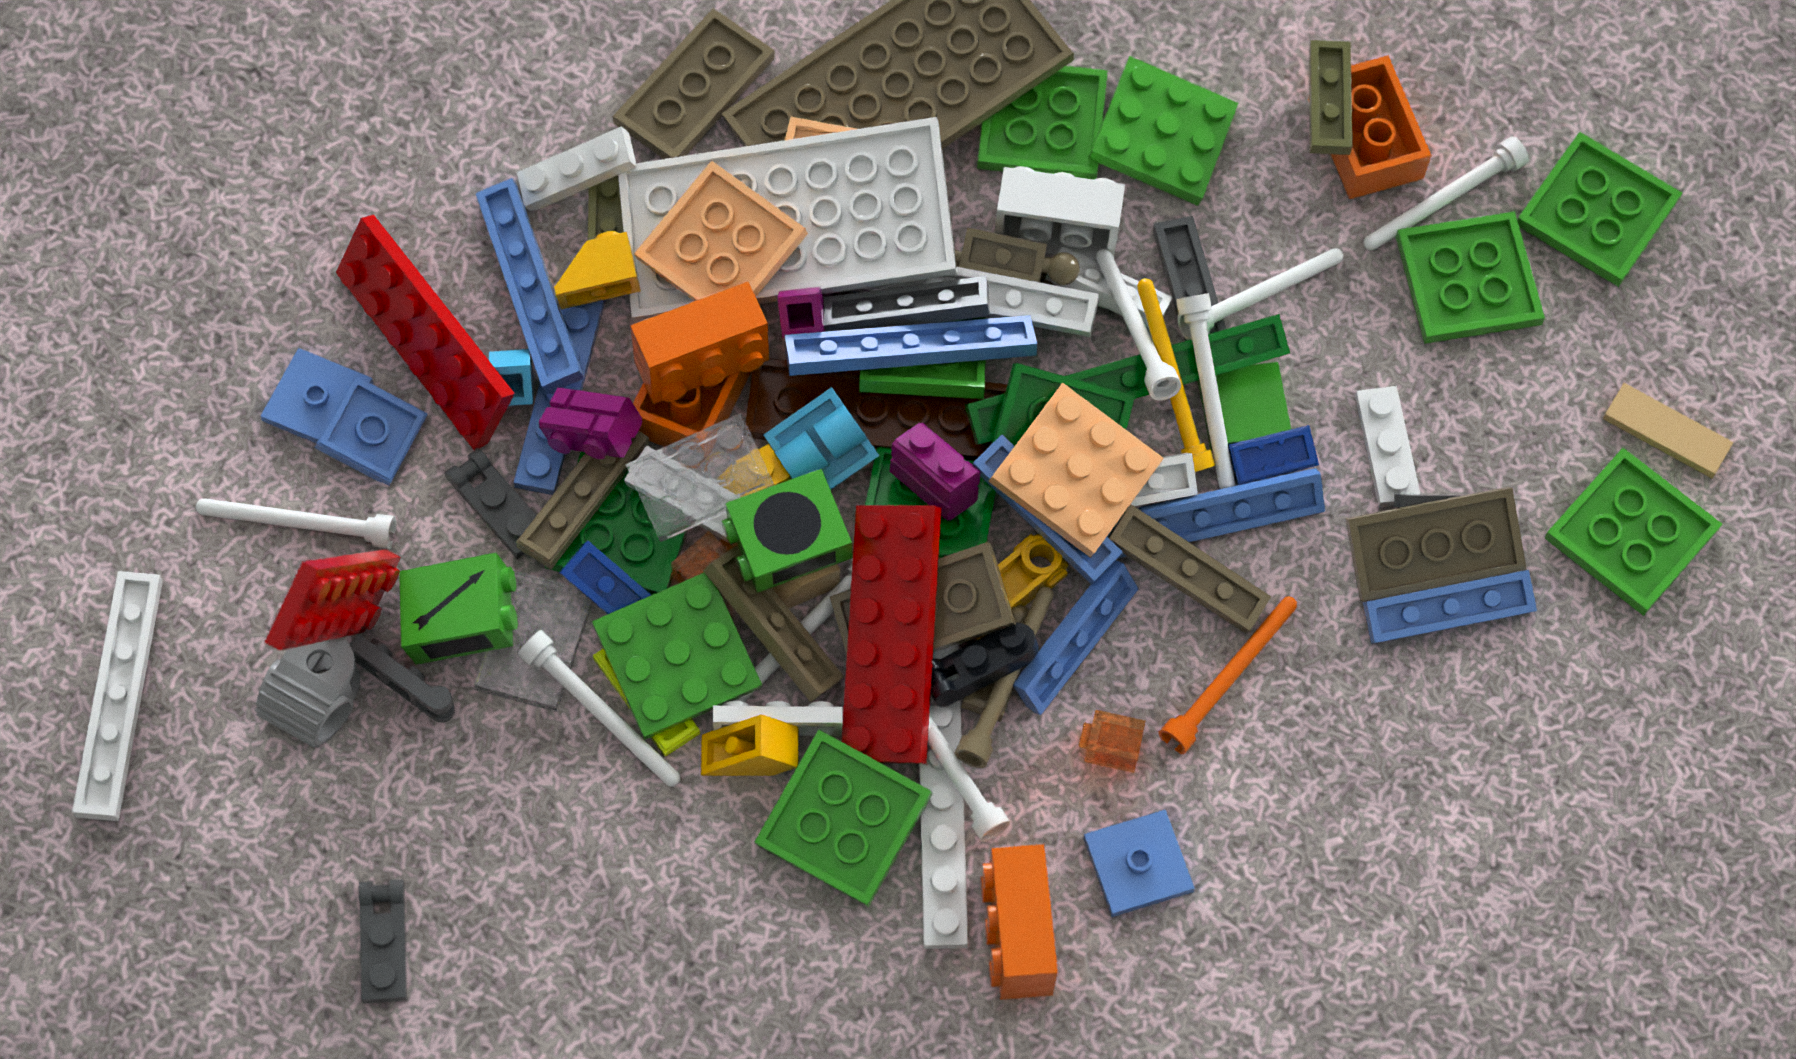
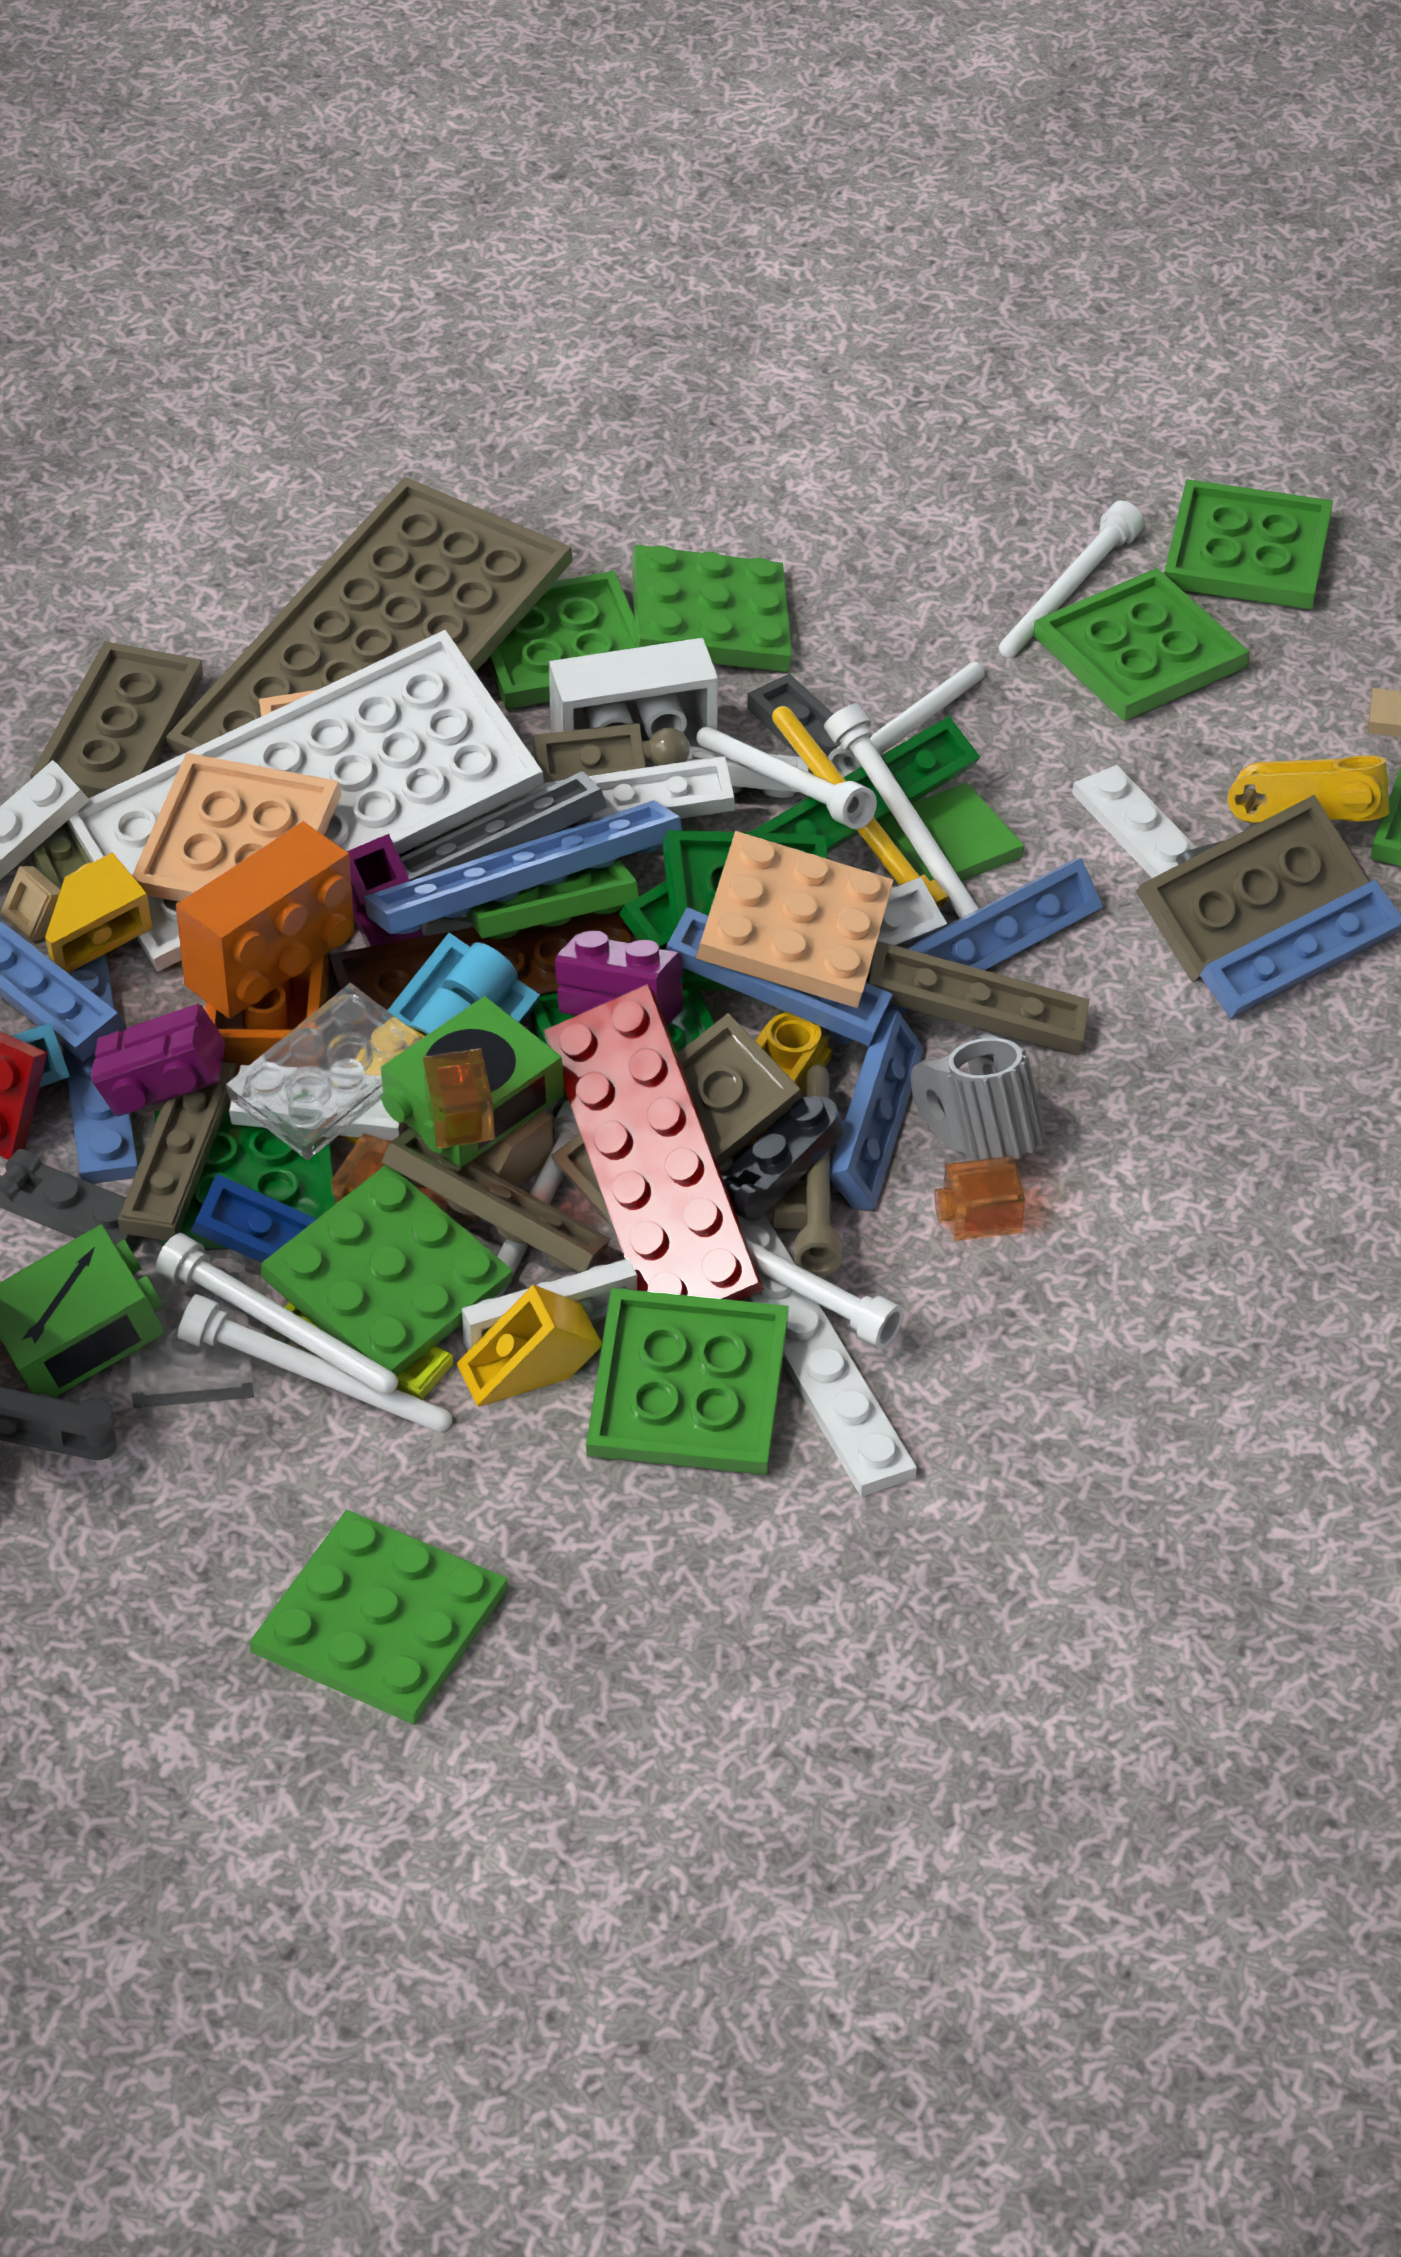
camera: 20 degrees left, 20 degrees down
(383, 943) = (141, 1721): dark grey plate -> none
(546, 596) = (185, 1262): none -> white piece
(566, 920) = (379, 1616): none -> bright green plate
(570, 233) = (31, 902): none -> tan tile
(760, 559) = (458, 1098): none -> clear orange brick
(1019, 922) = (976, 1407): orange brick -> none
(1138, 863) = (1080, 1318): medium blue plate -> none
(1149, 689) = (984, 1110): none -> light grey piece
(1185, 727) = (1059, 1163): orange piece -> none
(1273, 455) = (1012, 864): blue plate -> none
(1330, 97) = (895, 501): olive plate -> none
(1385, 133) = (948, 535): orange brick -> none
(1533, 473) = (1345, 787): none -> yellow piece

